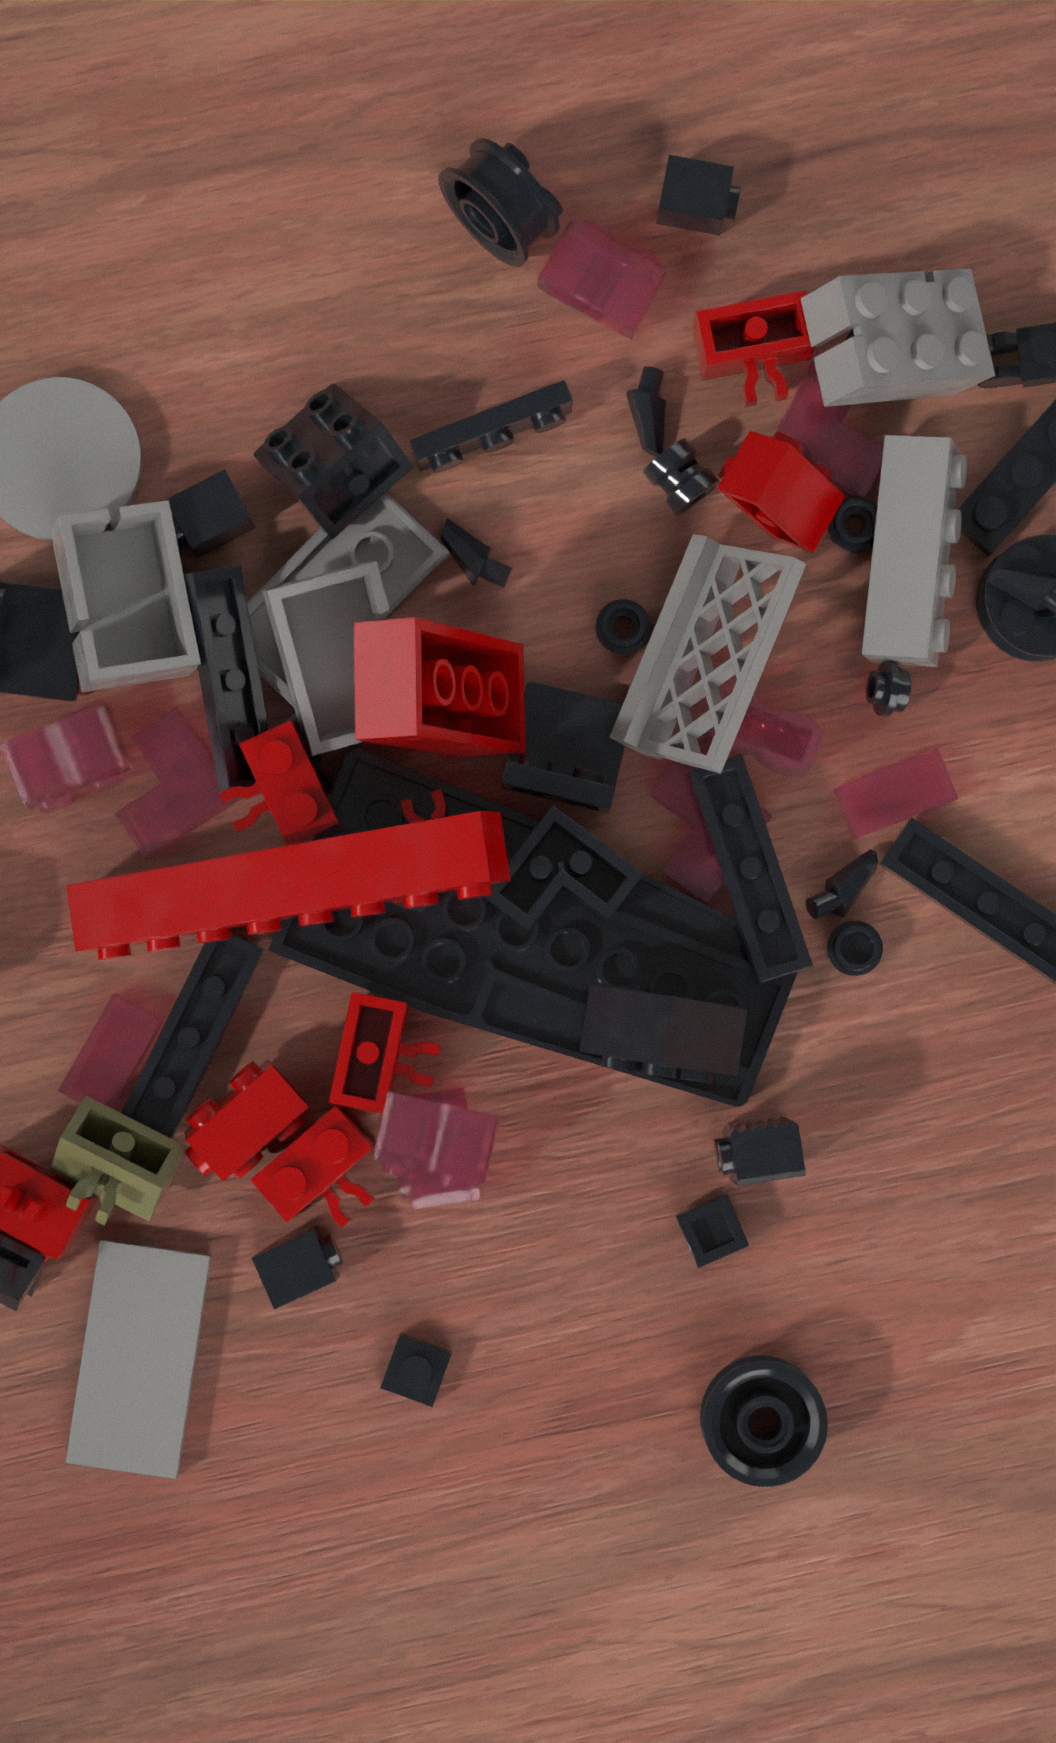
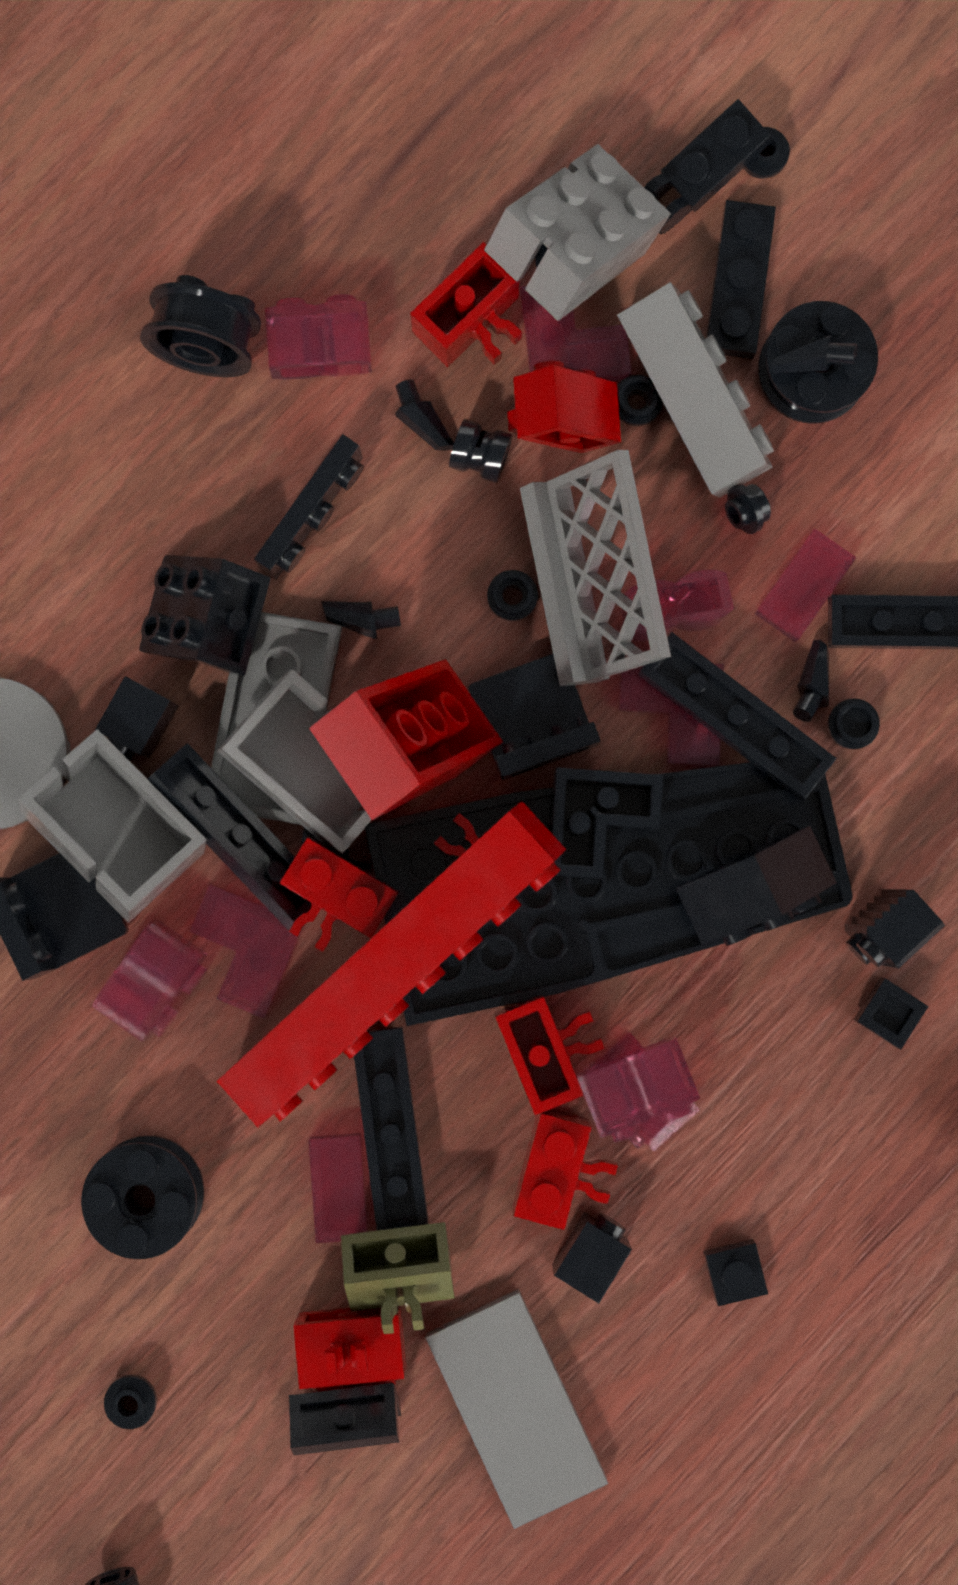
camera: 30 degrees left, 0 degrees up
(231, 1132) = (474, 1182): red brick -> none
(697, 195) = (349, 227): black brick -> none

